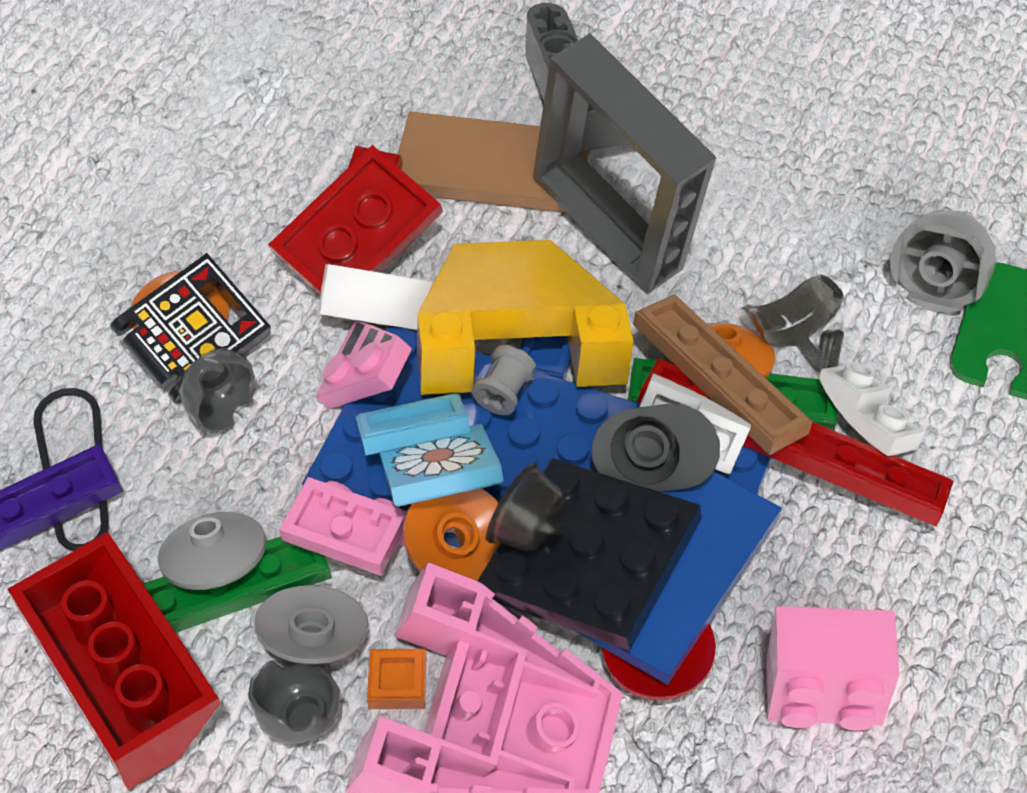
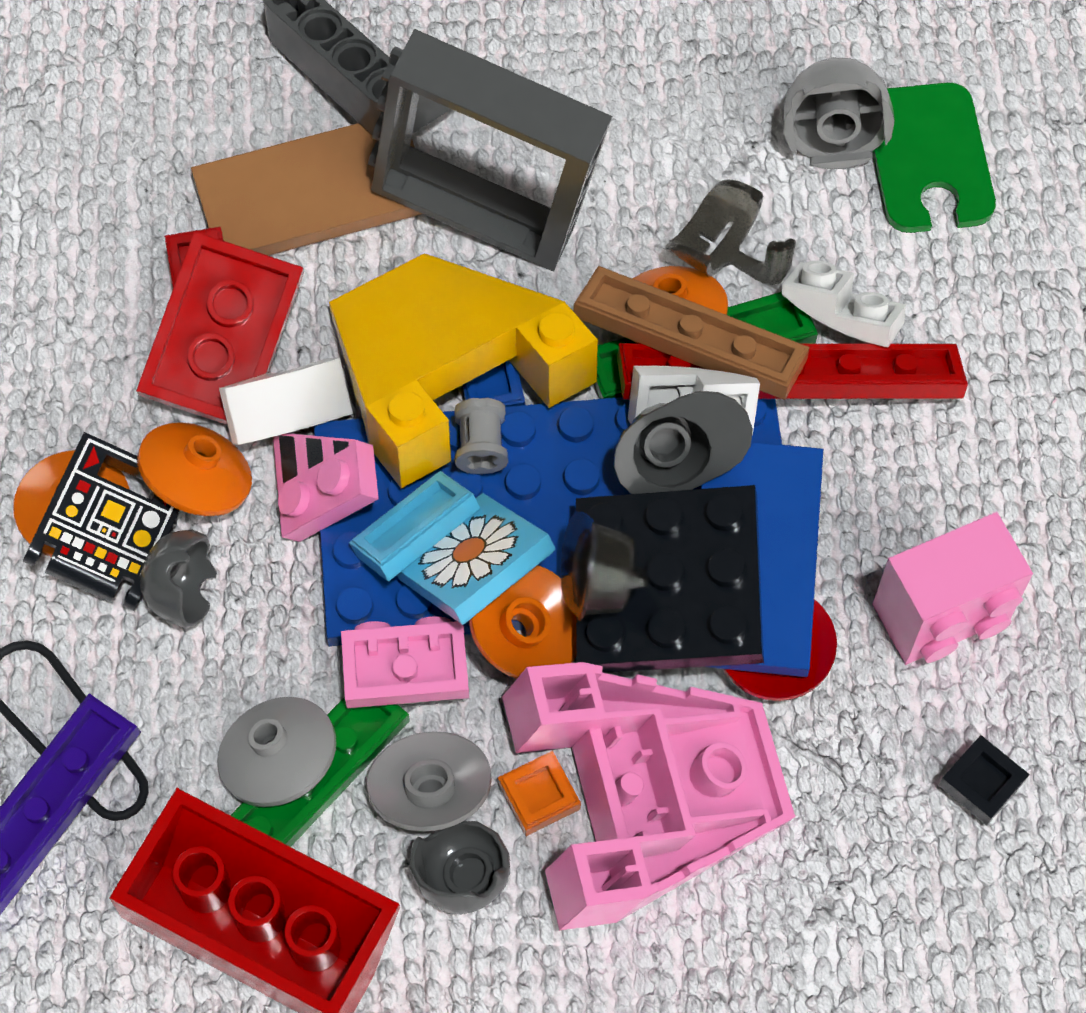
camera: 30 degrees left, 10 degrees up
(277, 318) = (194, 469): none -> orange dish

